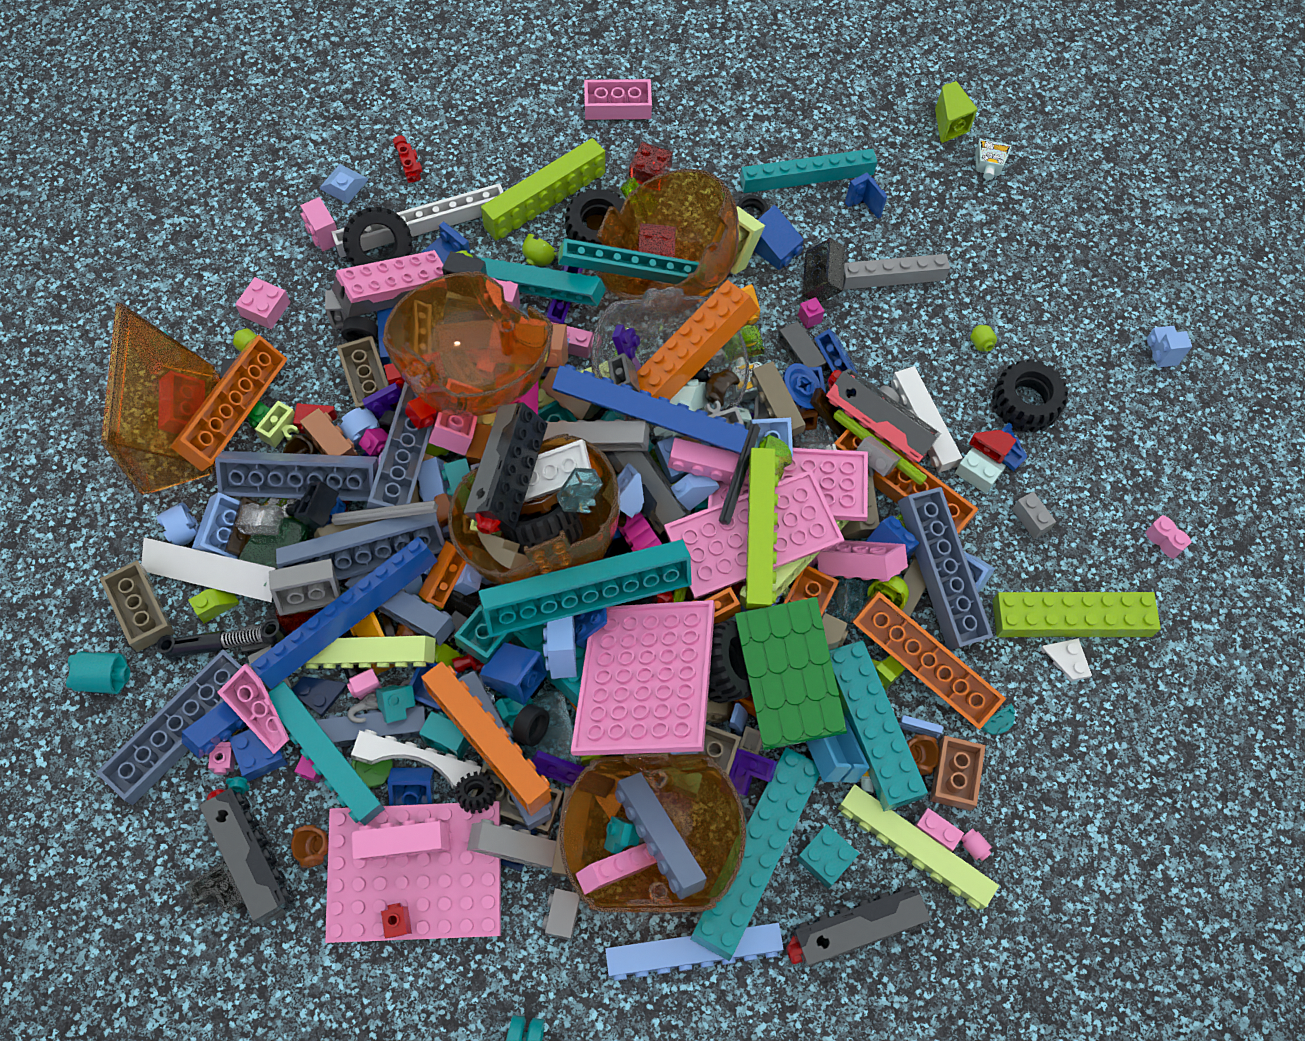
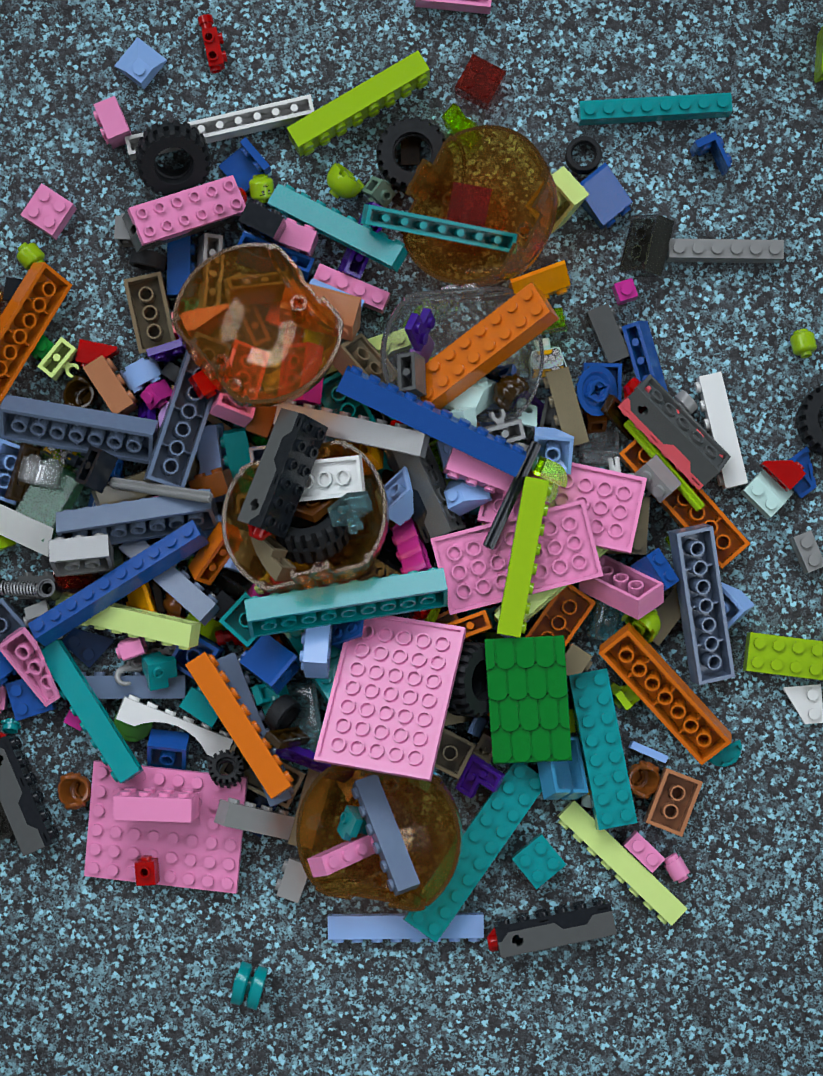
camera: 10 degrees right, 20 degrees up
(538, 745) = (287, 737): none -> dark brown tile

